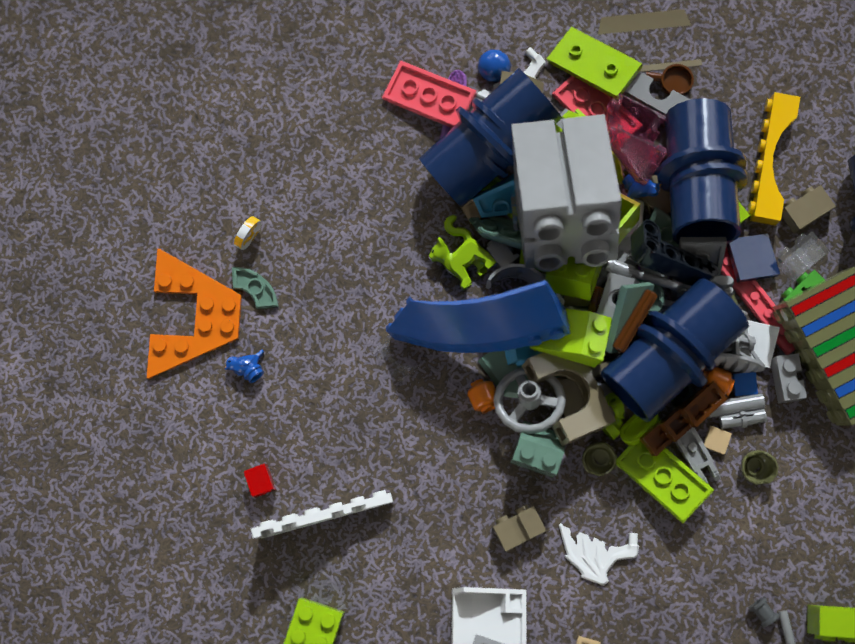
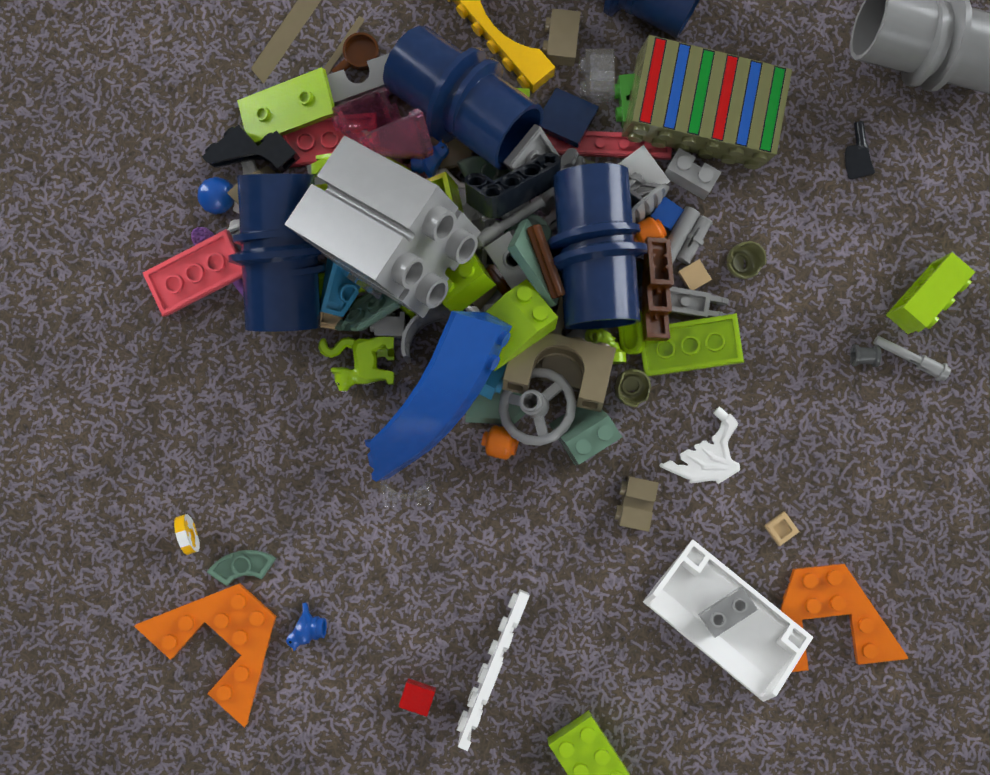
camera: 55 degrees left, 5 degrees up
(540, 54) = (239, 147): none -> black arch

